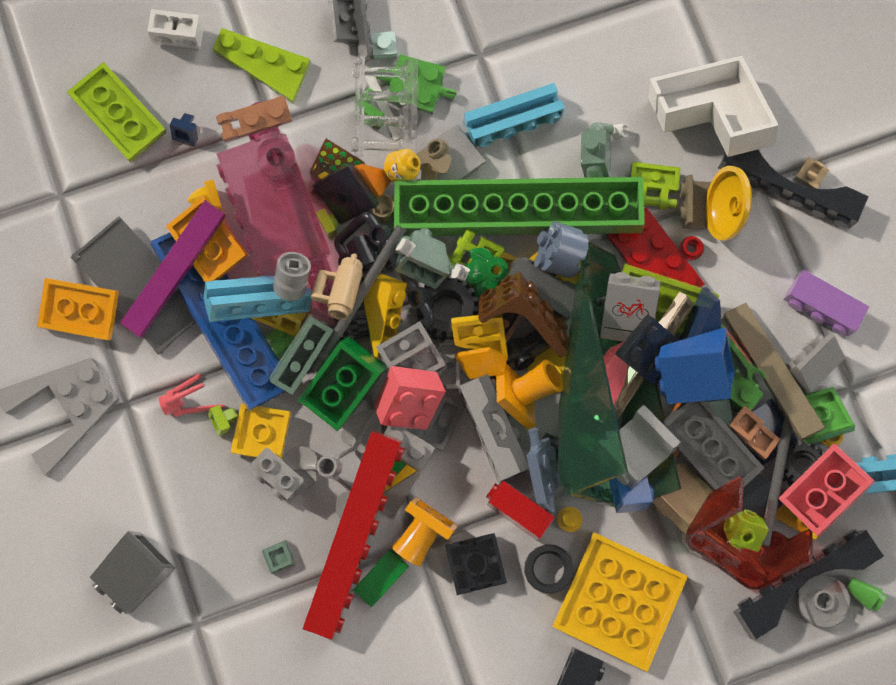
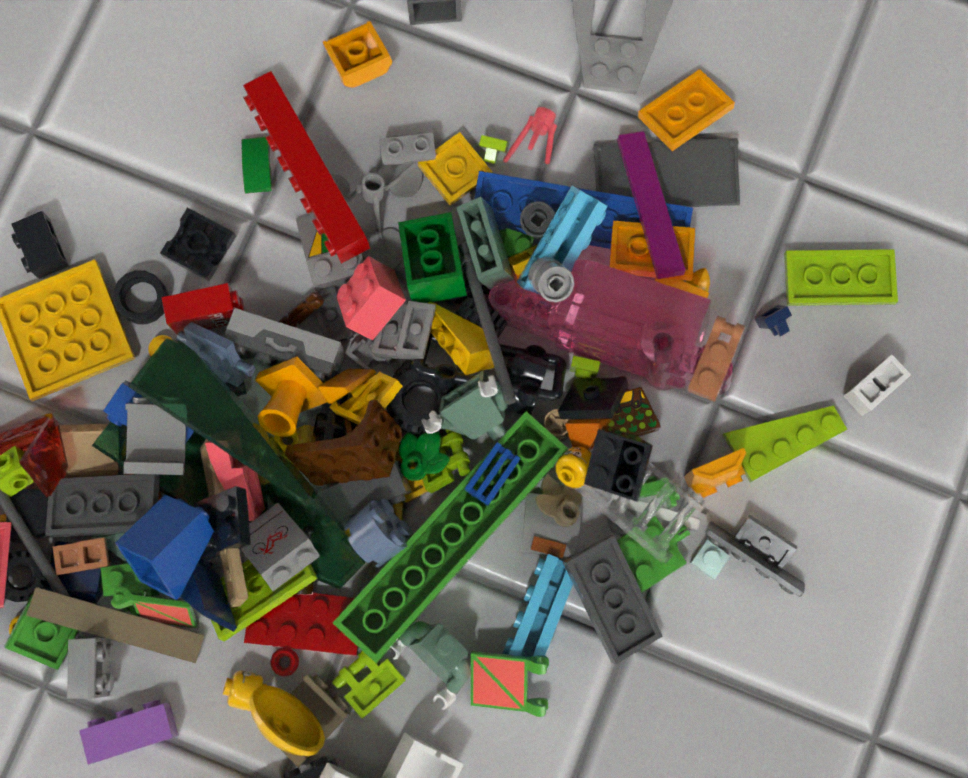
camera: 135 degrees right, 0 degrees up
(233, 579) = (358, 55): none -> light orange slope
(250, 340) = (536, 219): none -> dark grey wheel
(278, 557) = (346, 104): sand green tile -> none
(324, 81) = (715, 473): none -> light orange slope
(344, 288) = (503, 314): tan piece -> none
(376, 132) = (618, 463): none -> black slope
(422, 531) = (260, 230): light orange plant -> none
(452, 210) = (505, 454): none -> blue tile
(459, 444) = (303, 310): none -> reddish brown axle
(465, 77) = (612, 599): none -> dark grey plate
(468, 145) = (548, 547): none -> dark orange piece
(576, 98) = (502, 682): none -> flag
(732, 255) = (241, 688): none -> yellow head

